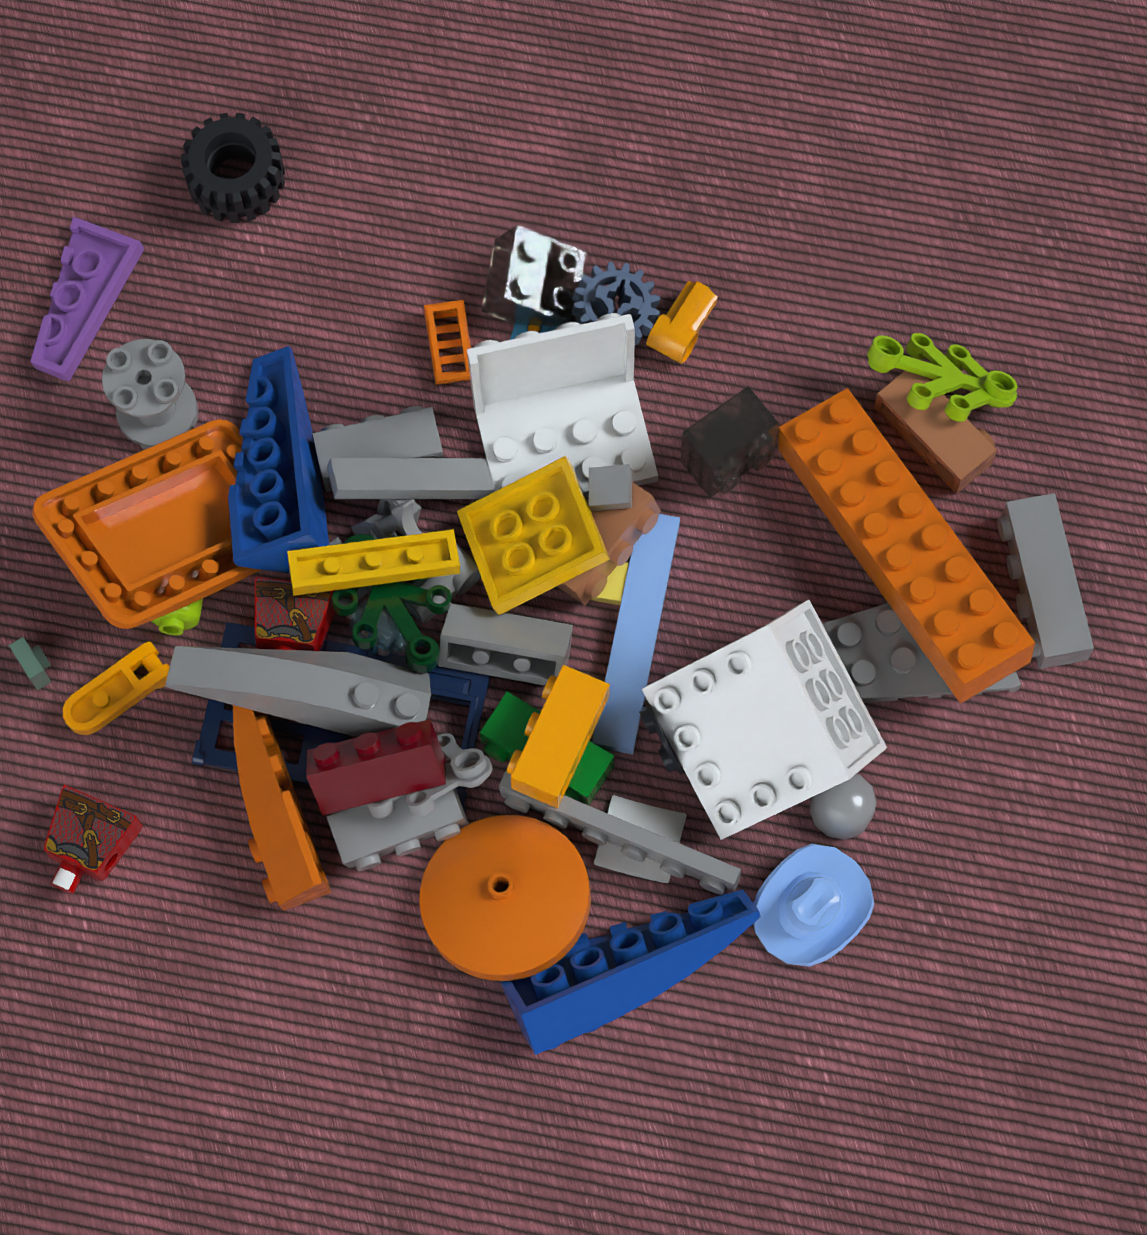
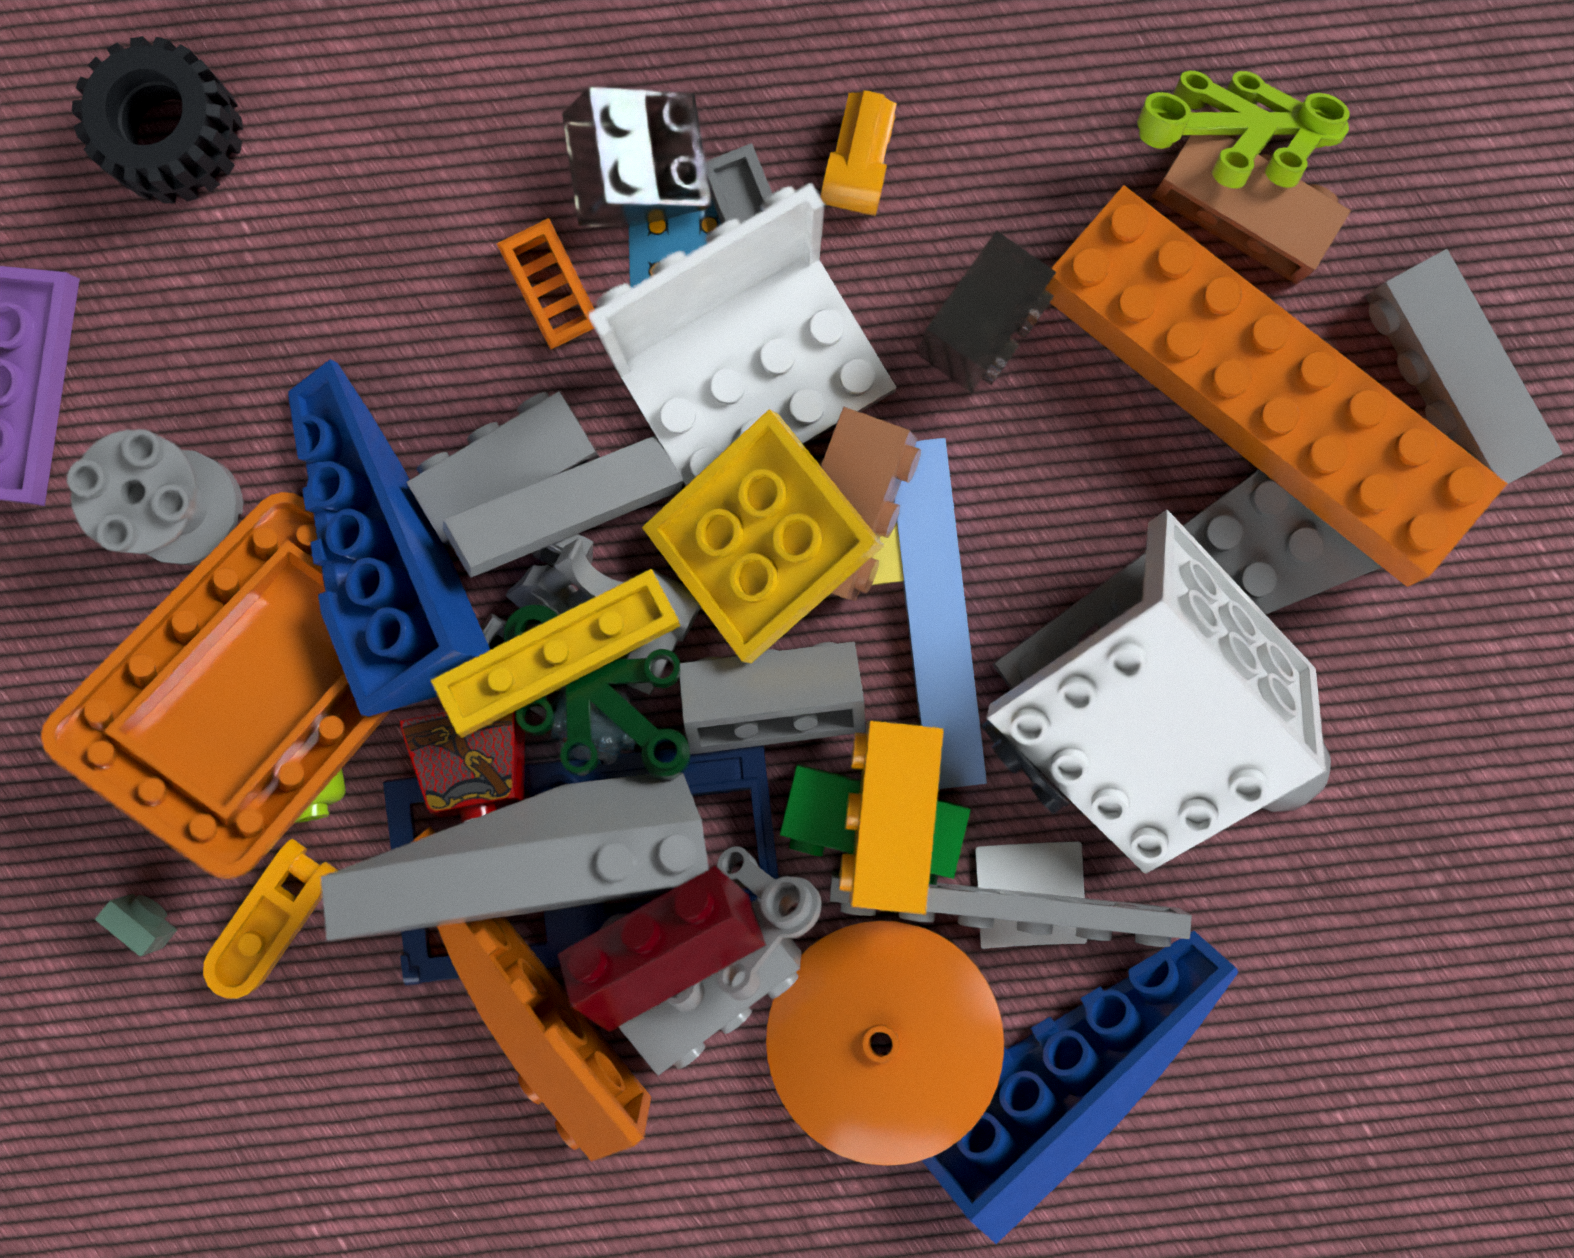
camera: 25 degrees left, 15 degrees up
(87, 838) = (299, 1139): torso -> none
(610, 487) = (847, 436): light grey tile -> none
(634, 297) = (782, 144): sand blue gear -> none
(812, 905) = (1292, 916): light blue hat -> none

